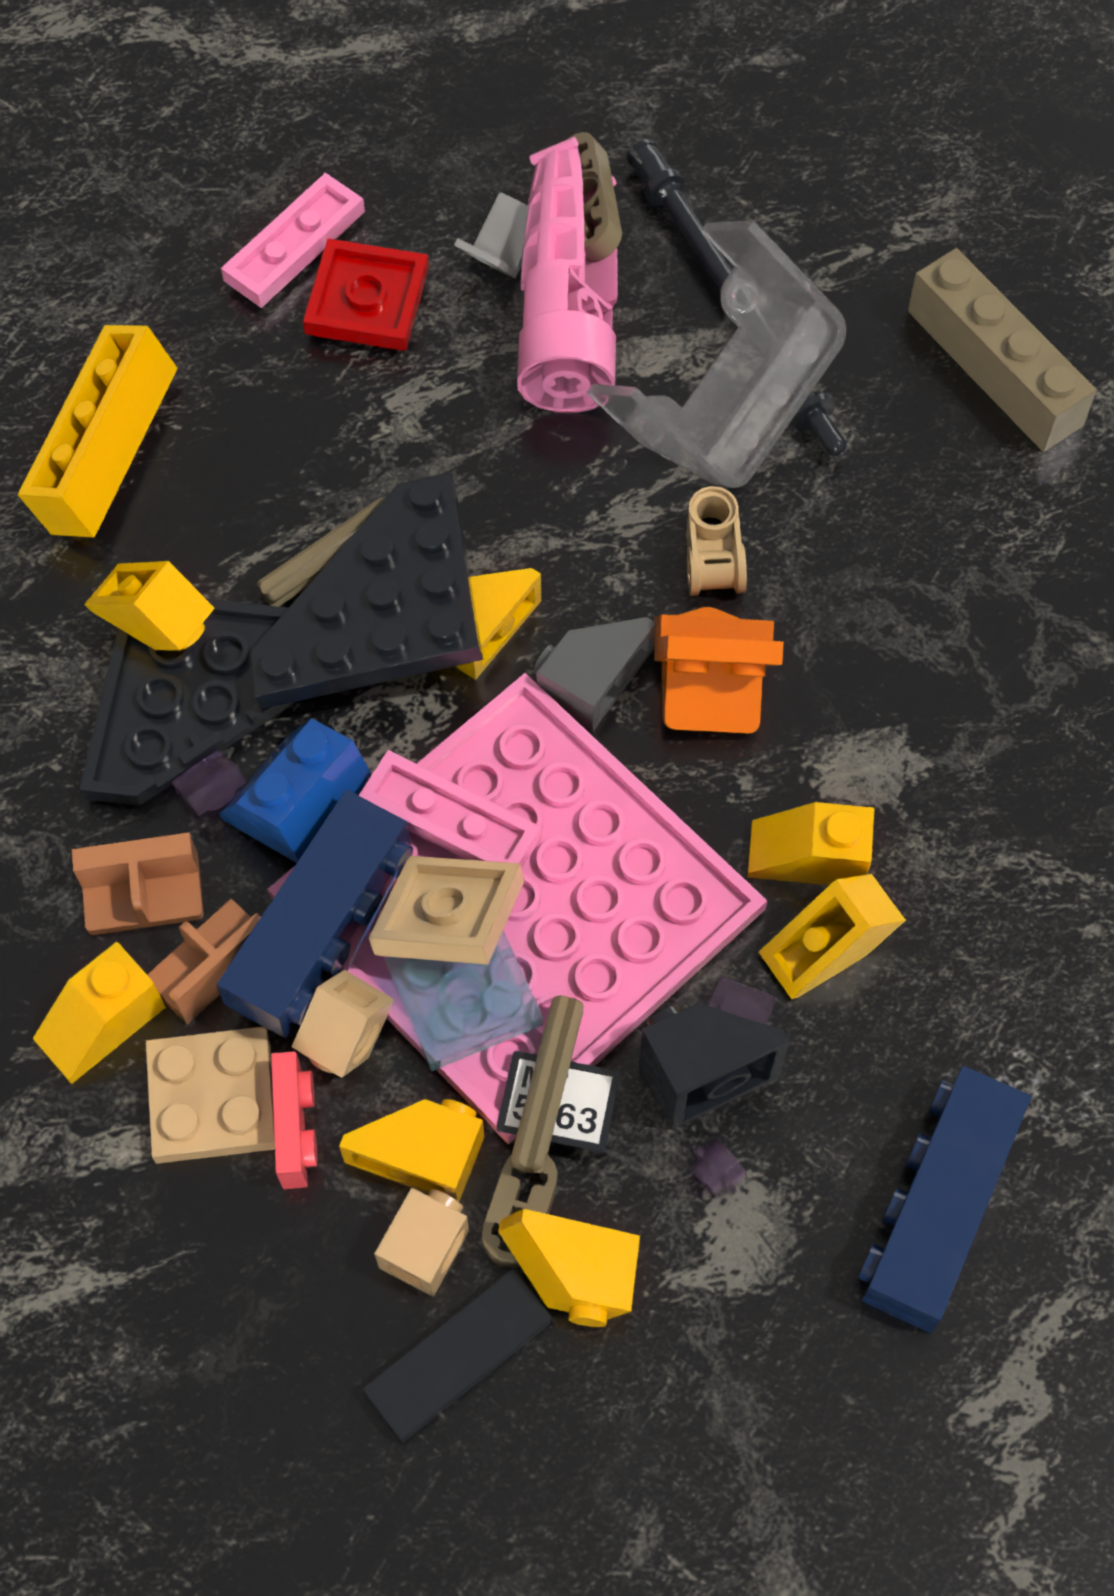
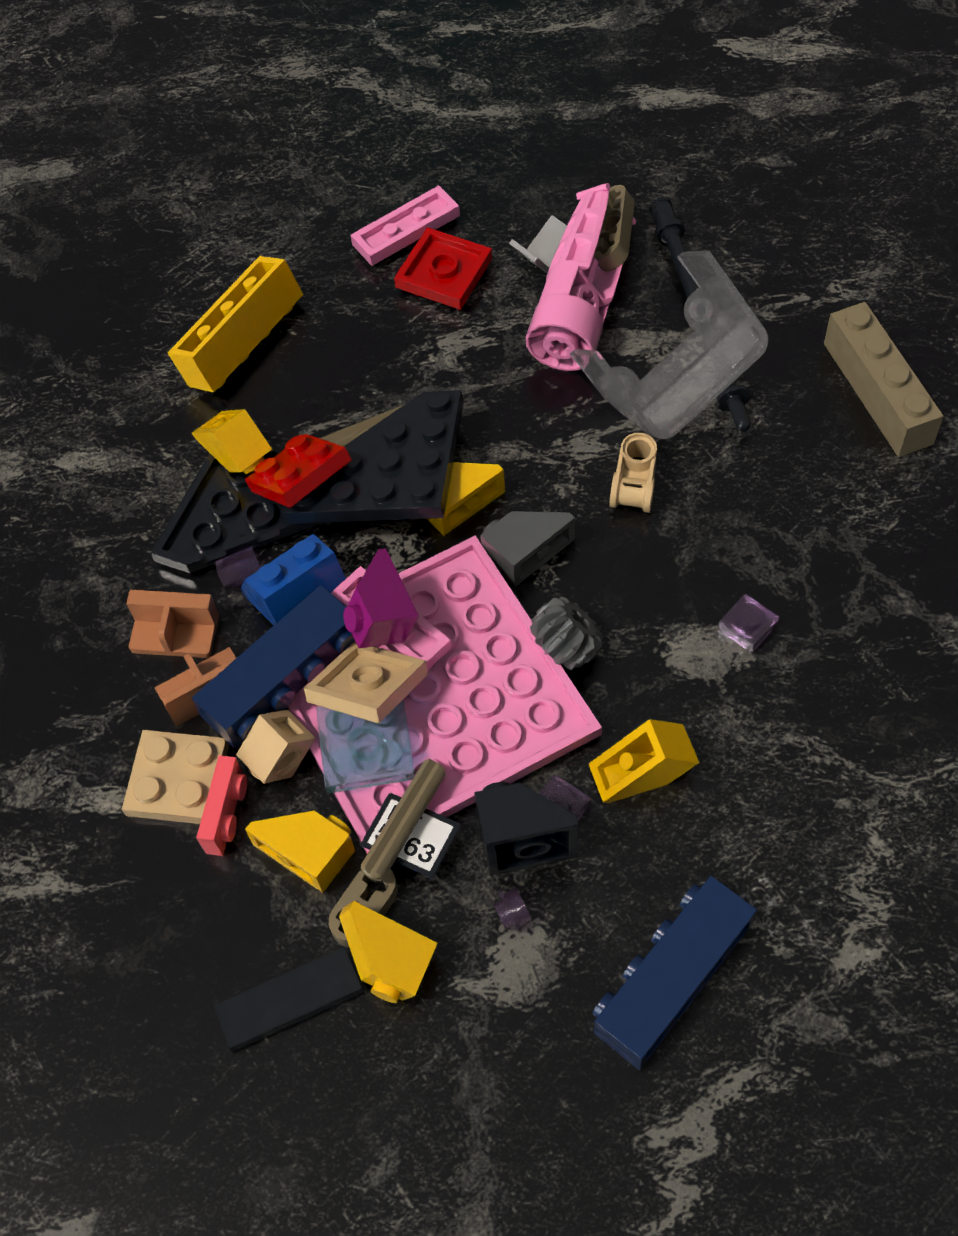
camera: 20 degrees right, 5 degrees down
(97, 1012) = (116, 703): yellow slope -> none
(260, 631) = (297, 469): none -> red plate
(372, 920) = (316, 668): blue sticker -> none
(423, 1239) = (287, 910): tan brick -> none
(438, 800) = (380, 606): none -> magenta slope
(687, 783) = (566, 633): none -> dark grey gear
(713, 669) = (608, 559): orange piece -> none
(812, 844) = (647, 694): yellow slope -> none
(913, 718) = (748, 623): none -> clear purple plate

